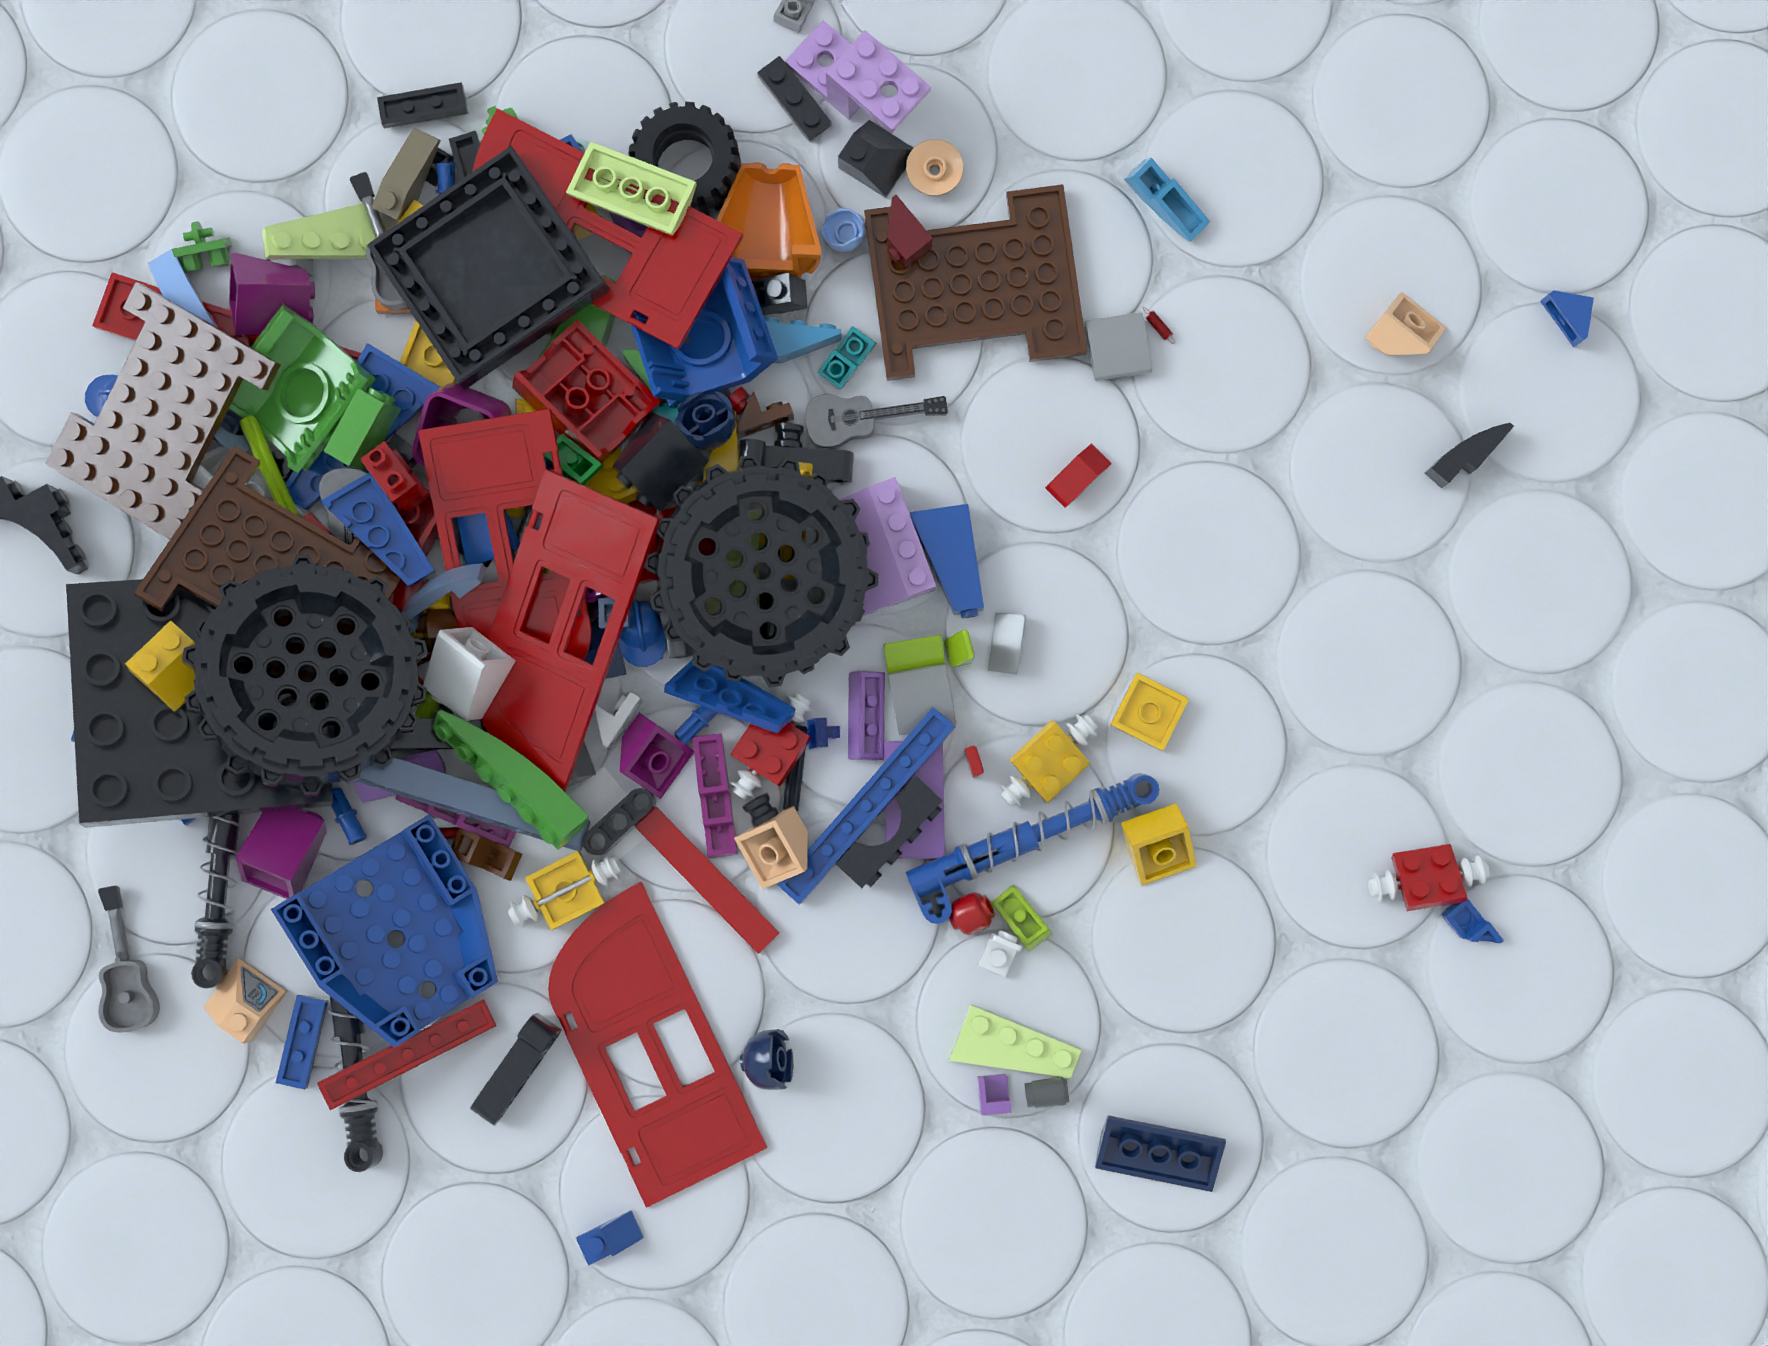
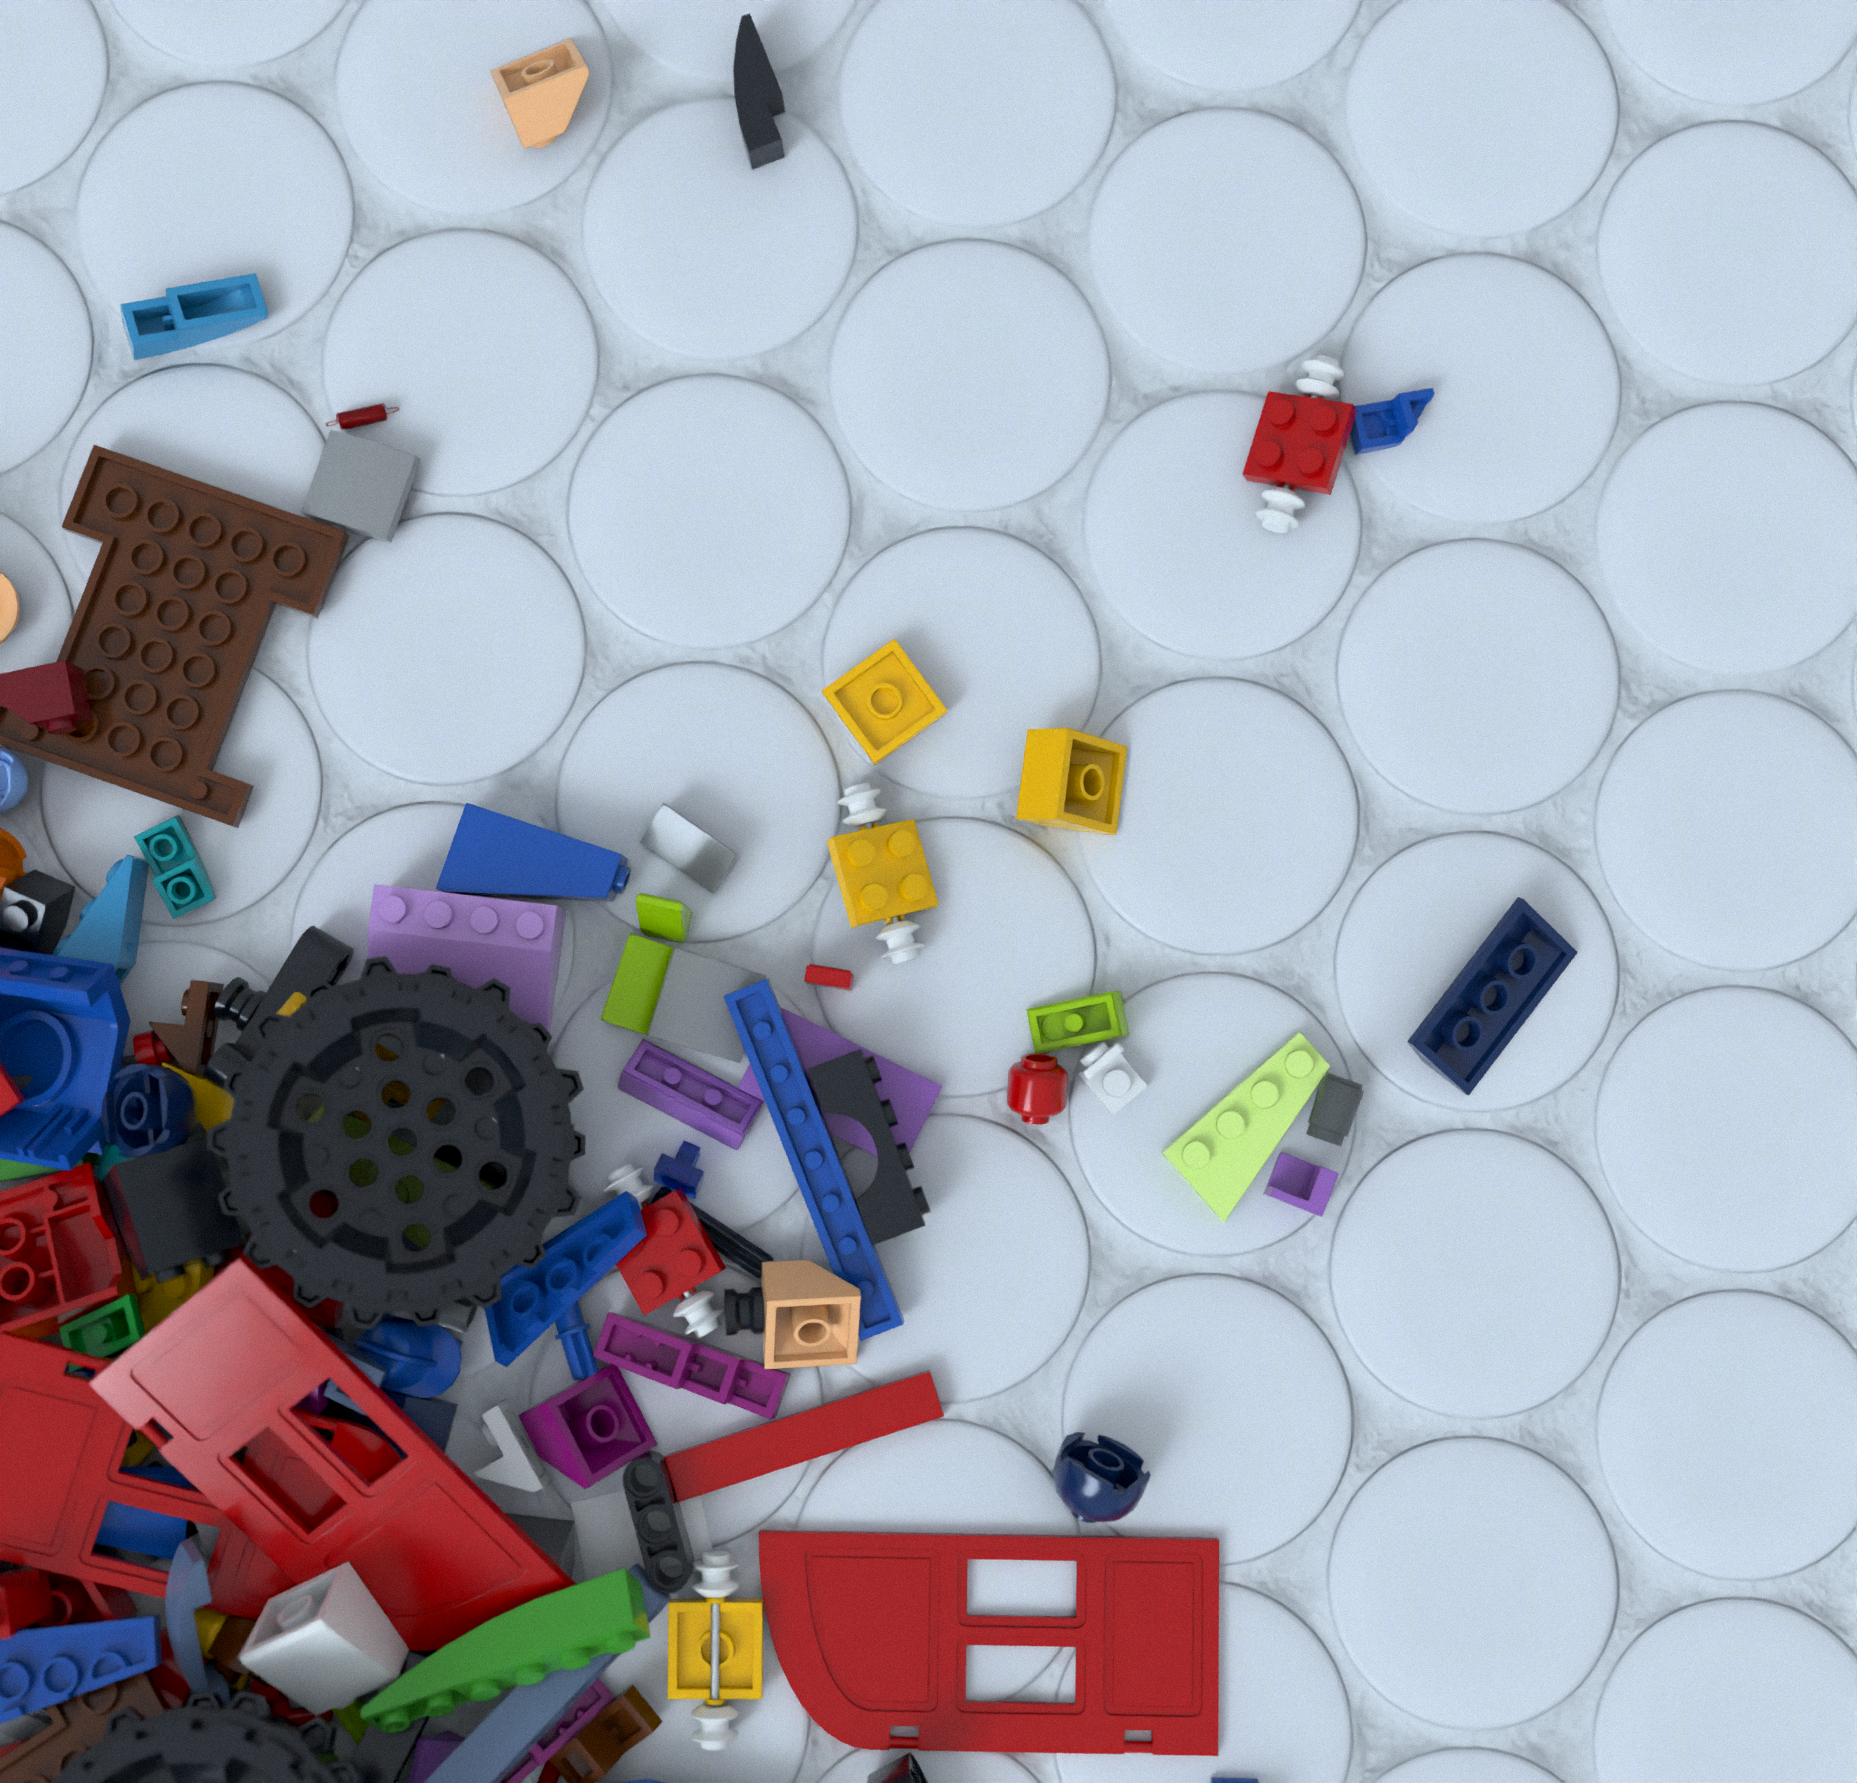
camera: 60 degrees left, 0 degrees up
(837, 420) = (258, 921): flat silver piece -> none
(1021, 840) = (970, 970): blue piece -> none
(1078, 475) = (509, 632): red slope -> none

